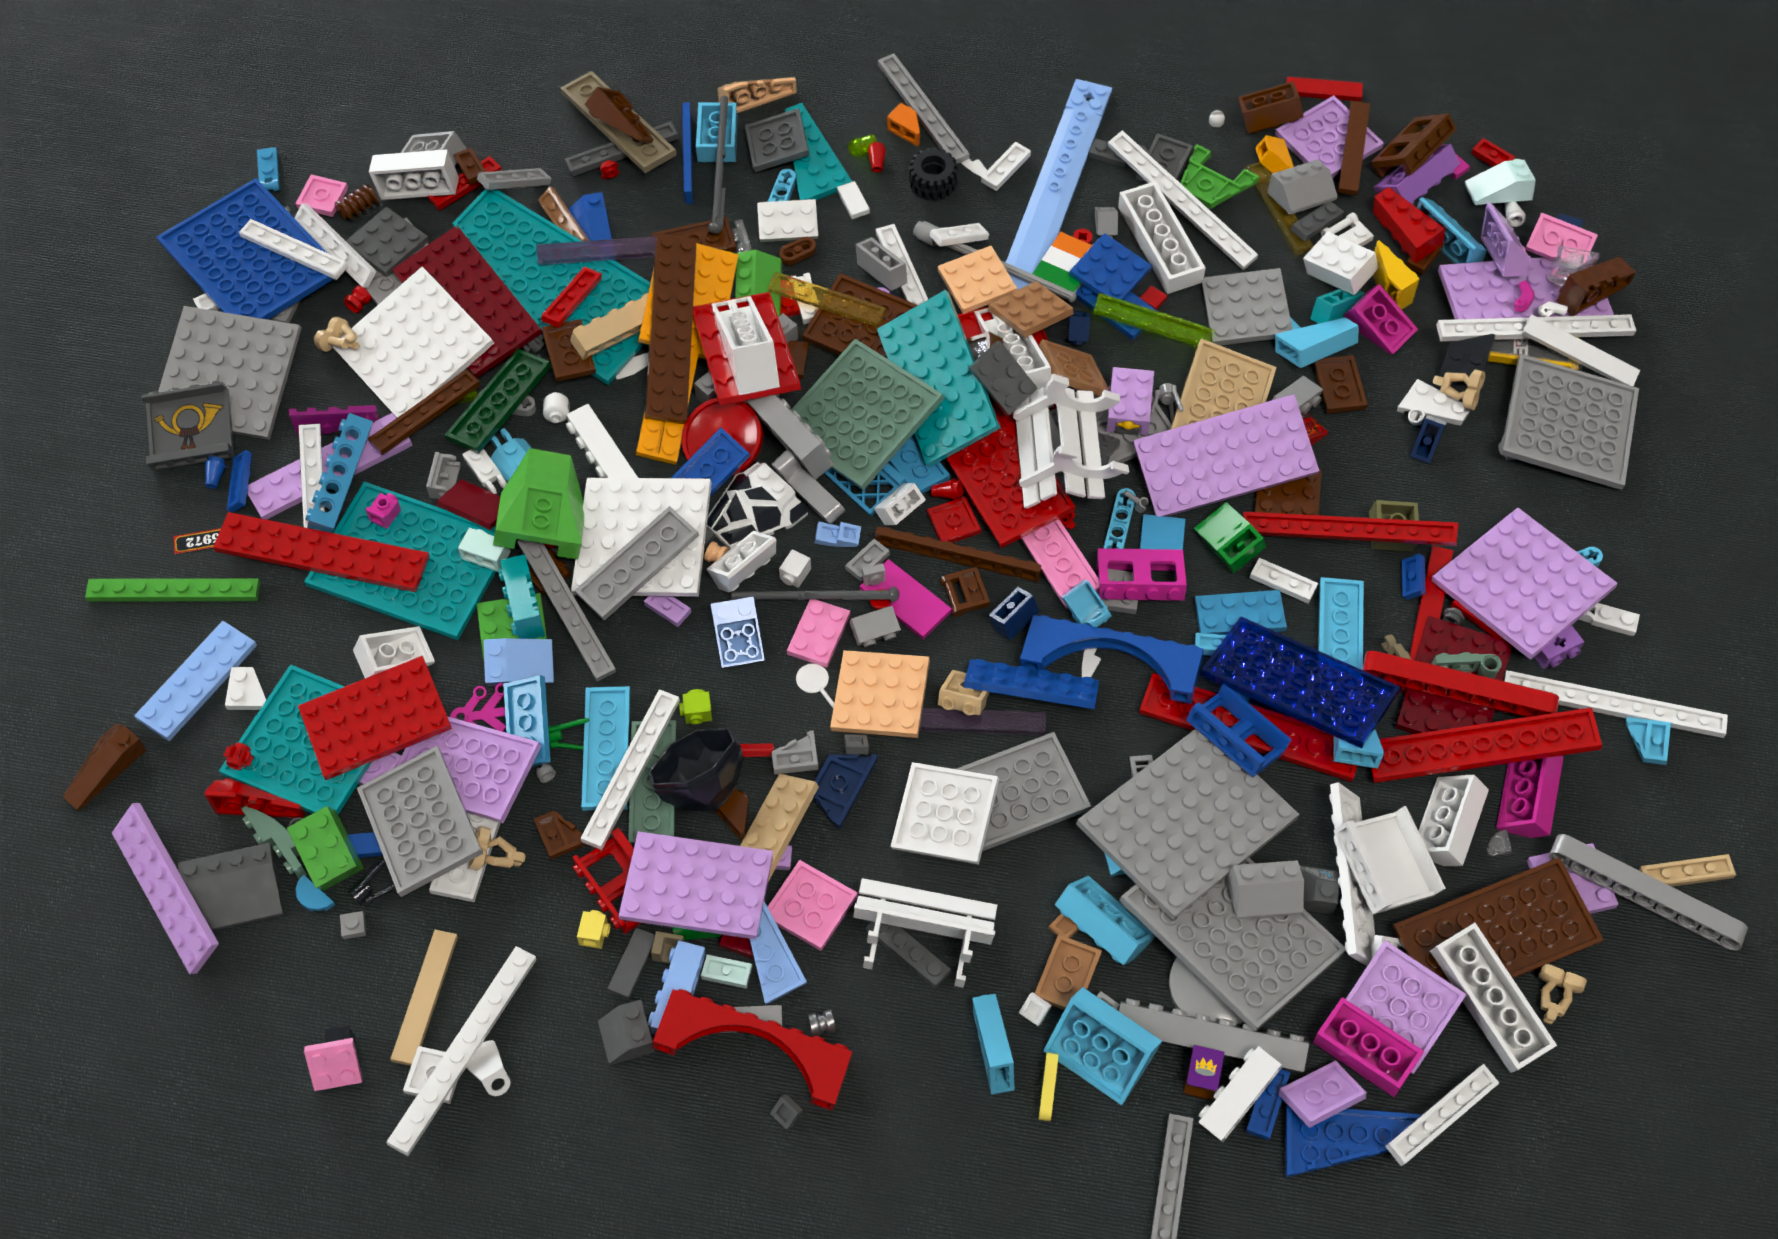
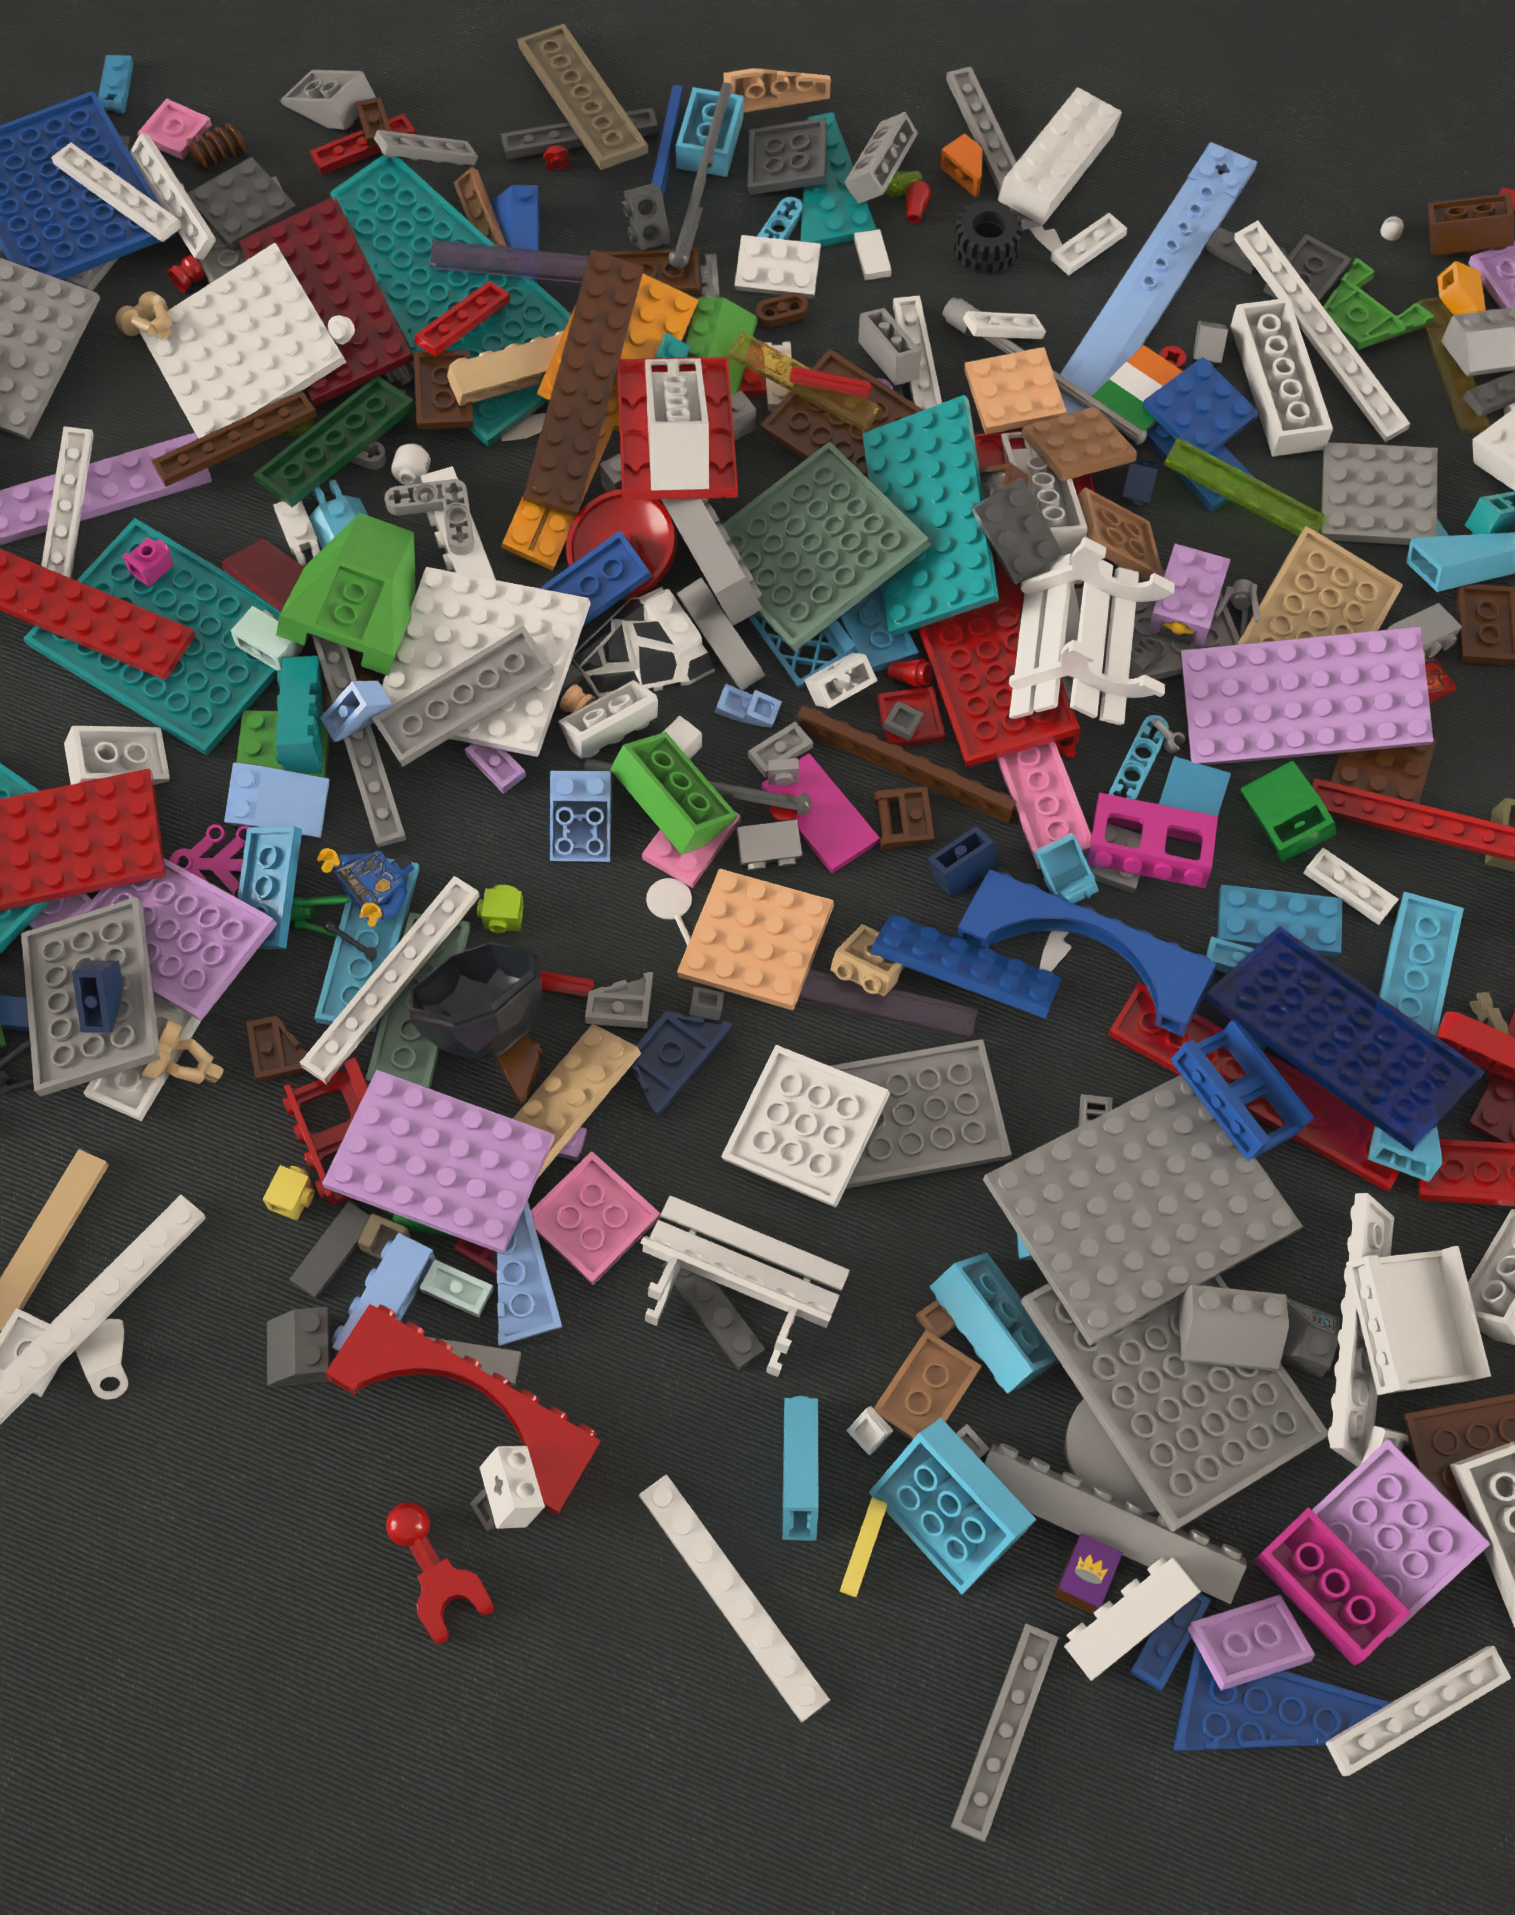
camera: 10 degrees right, 5 degrees up
(331, 419) = (116, 427): magenta wing -> none
(359, 429) = (73, 562): dark azure brick -> none
(414, 174) = (296, 120): white brick -> none
(429, 817) = (97, 995): none -> dark blue slope
(442, 474) = (239, 527): light grey hinge -> none
(486, 320) = (341, 329): none -> white plate
(545, 773) = (278, 961): light grey hinge -> none
(561, 586) = (355, 709): none -> light blue slope
(587, 429) = (442, 500): none -> light grey beam
(600, 704) = (370, 881): none -> torso
(611, 755) = (370, 953): none -> black hinge
(616, 111) = (582, 81): reddish brown wedge -> none
(689, 199) = (651, 214): none -> dark grey brick
(727, 292) = (671, 348): none -> teal plate
(762, 1167) = (440, 1581): none -> red piece
(799, 356) = (748, 454): reddish brown tile -> none
(799, 1093) = (511, 1487): none -> white brick
(800, 602) = (672, 792): none -> bright green slope
(822, 1023) = (569, 1389): flat silver wheel -> none
(845, 130) = (881, 158): none -> light grey brick
(846, 296) = (830, 382): none -> red axle
(950, 524) = (903, 721): none -> dark grey plate
(967, 1139) = (734, 1598): none -> white plate
(972, 107) = (1059, 156): none -> white brick
(1154, 297) = (1253, 458): red tile -> none

